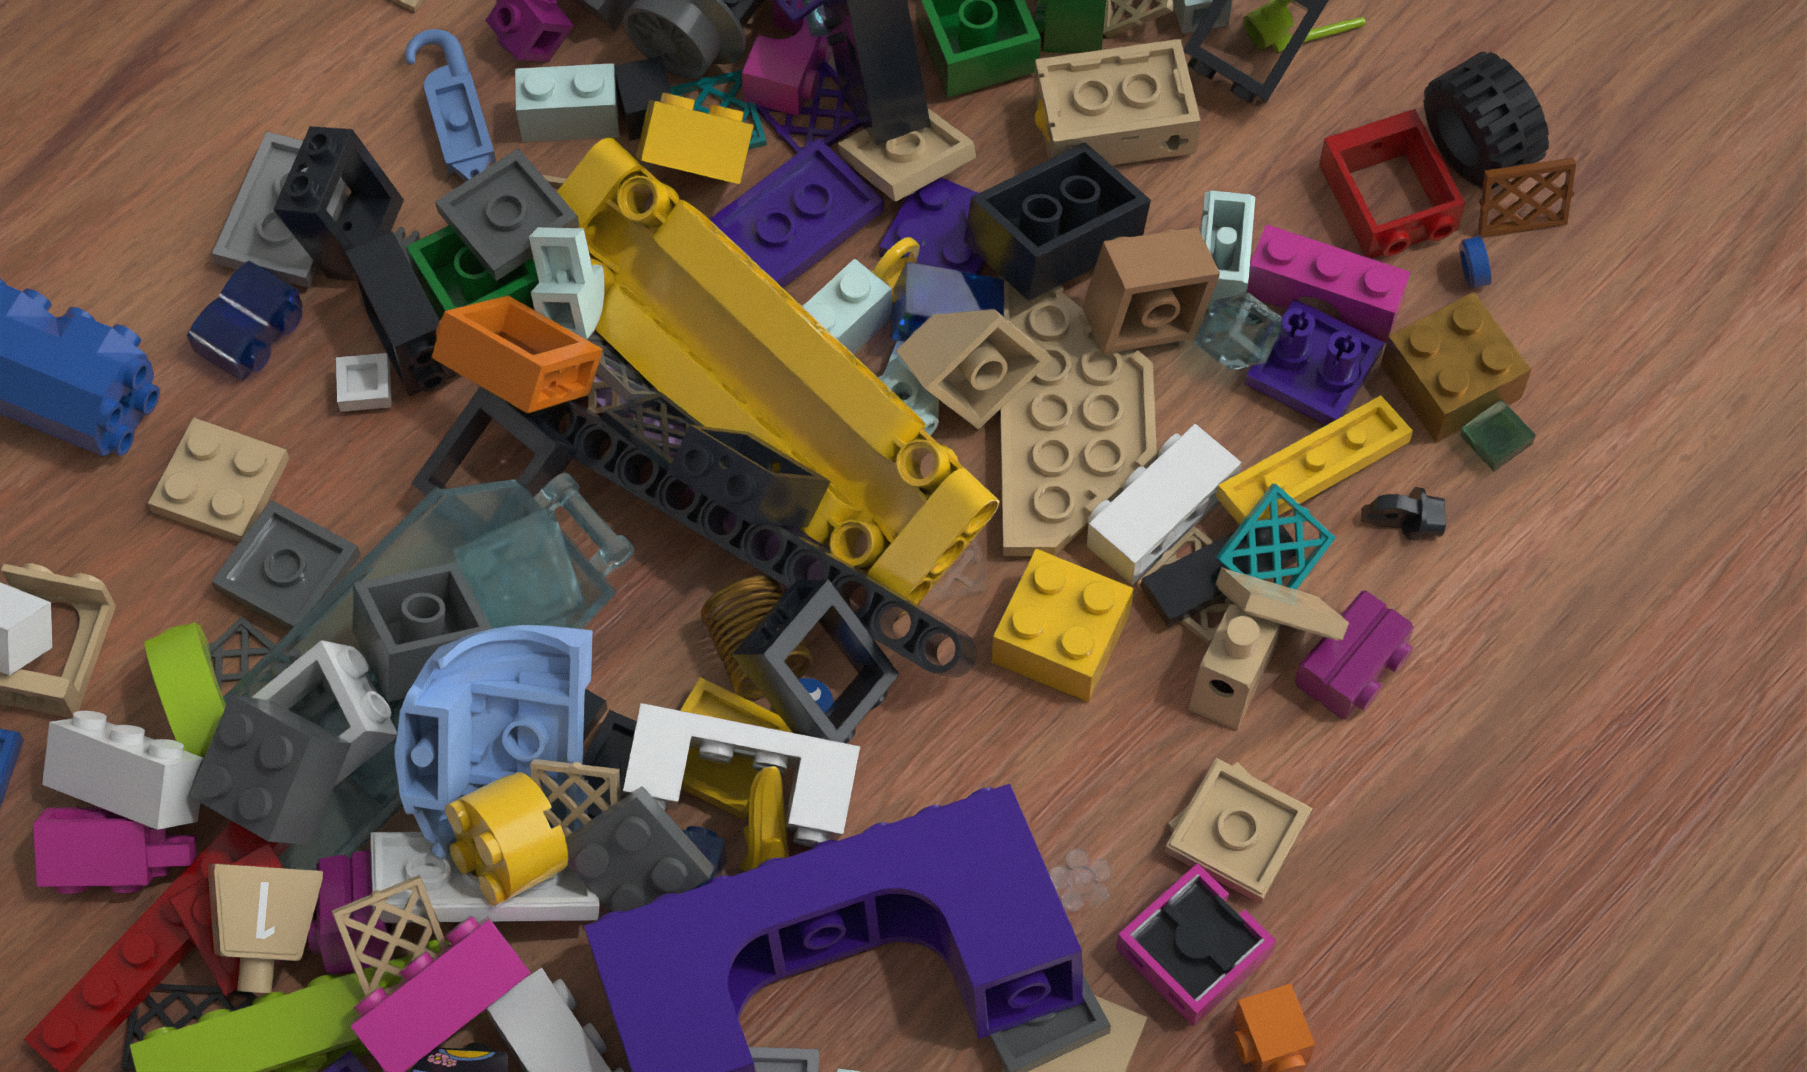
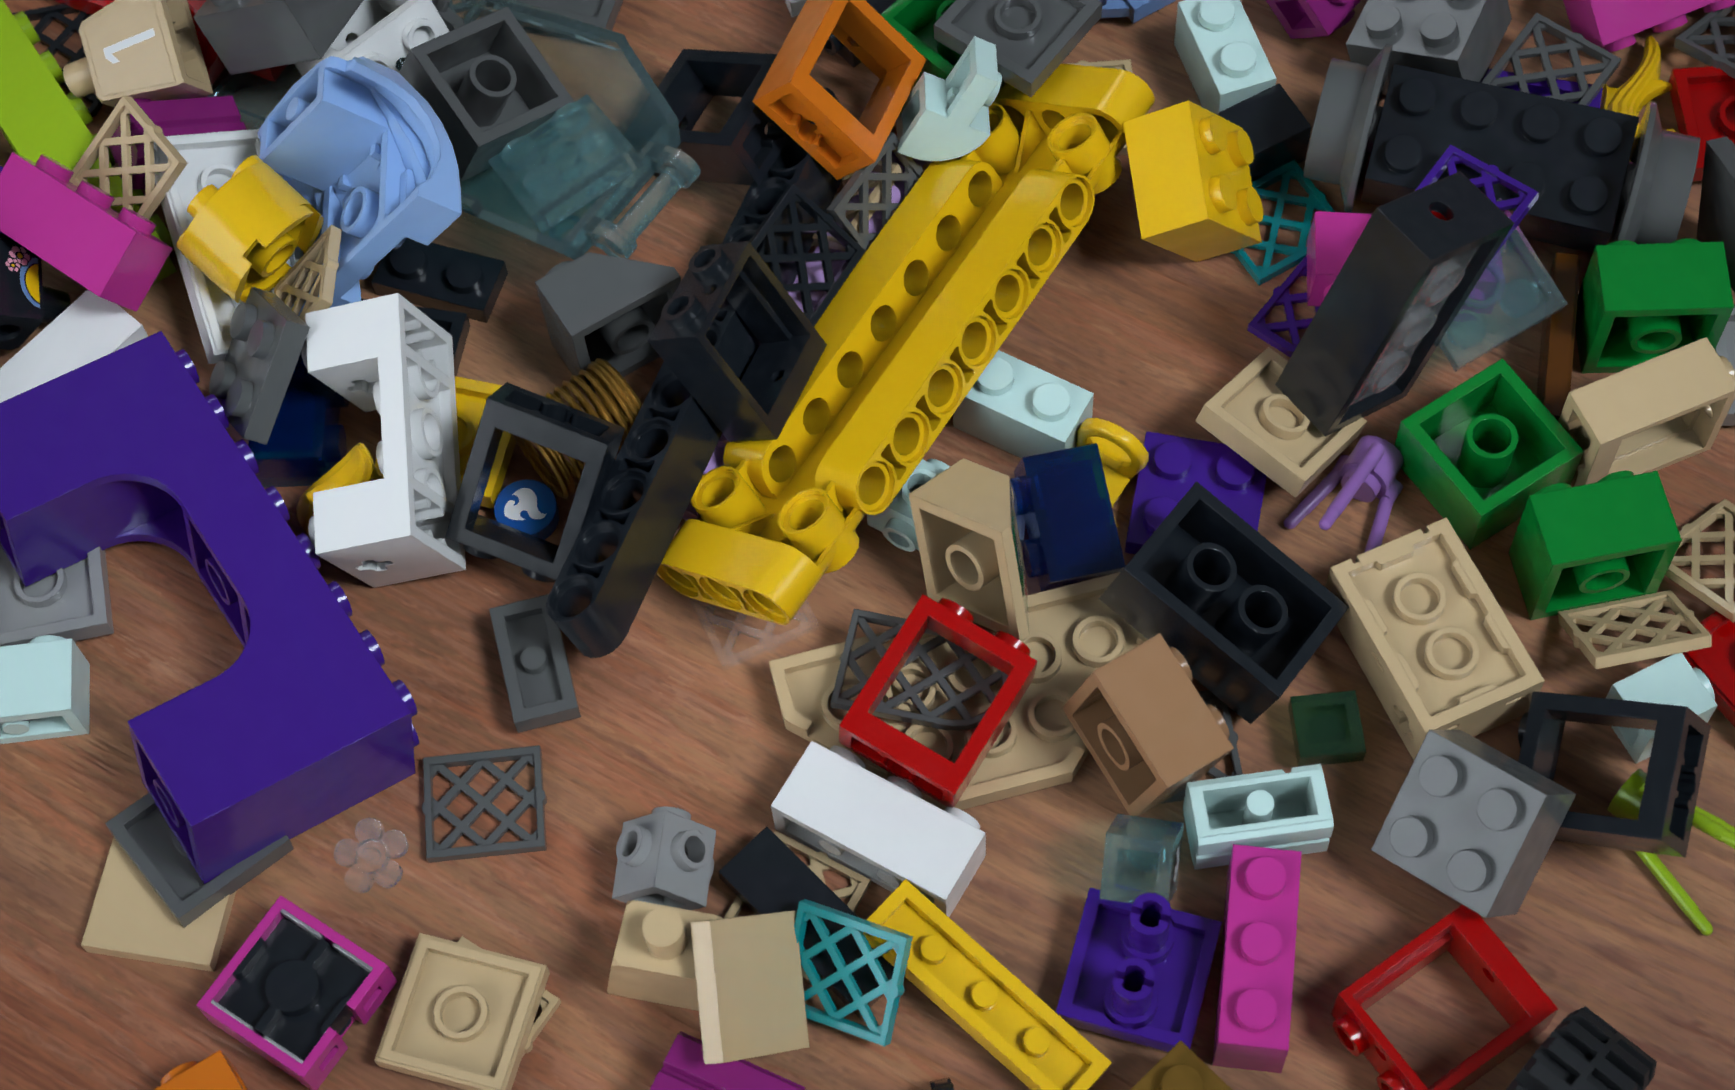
camera: 80 degrees right, 0 degrees up
(661, 594) = (605, 310): none -> dark grey slope
(799, 212) = (1156, 331): dark purple plate -> none
(950, 721) = (534, 664): none -> dark grey plate
(966, 115) = (1363, 476): none -> medium lavender plant
(1024, 489) = (886, 710): none -> dark grey window
(1062, 625) = (680, 747): yellow brick -> none
(1062, 751) = (488, 847): none -> dark grey window
(1086, 478) = (907, 757): none -> red window
(1154, 653) = (665, 860): none -> light grey brick
(1166, 194) = (1327, 728): none -> clear green plate
(1273, 113) = (1473, 822): none -> brick

